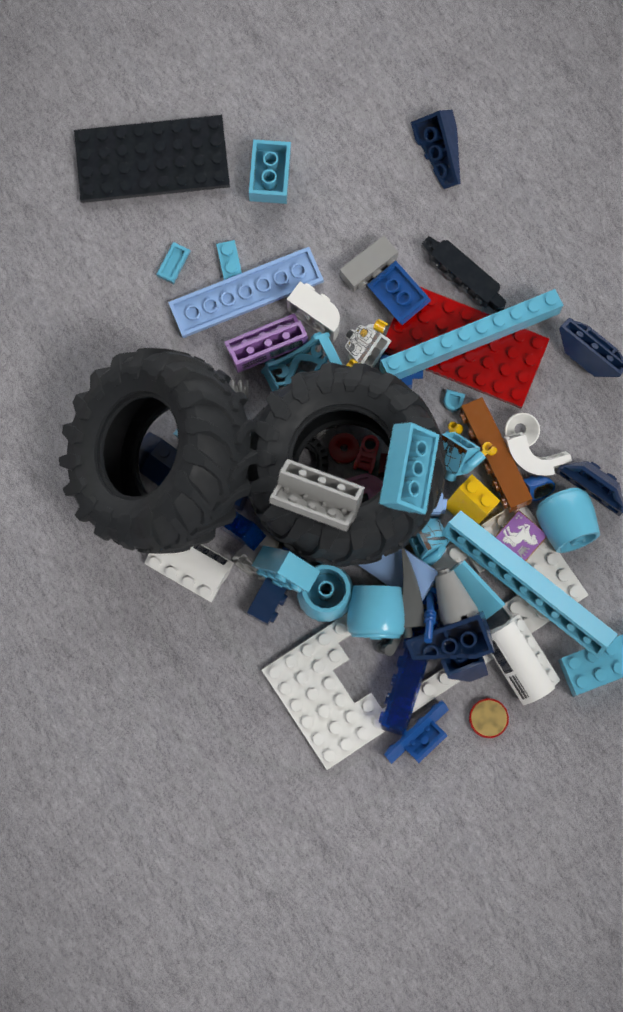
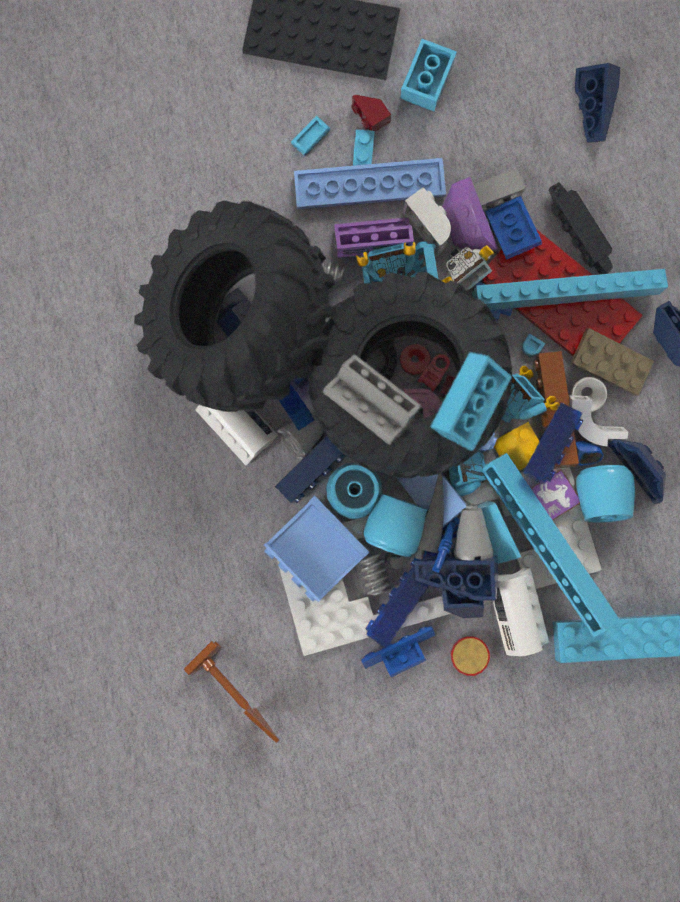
camera: 20 degrees right, 5 degrees up
(226, 222) = (372, 112): none -> dark red slope
(231, 804) = (204, 660): none -> dark orange piece
(285, 569) = (321, 459): medium azure brick -> none
(289, 361) = (388, 260): none -> torso
(306, 660) = (315, 549): none -> light blue panel
(351, 297) = (467, 217): none -> medium lavender wedge
(371, 668) = (375, 575): none -> light grey piece
(501, 487) = (552, 444): none -> clear blue brick
(534, 392) = (612, 362): none -> dark tan plate

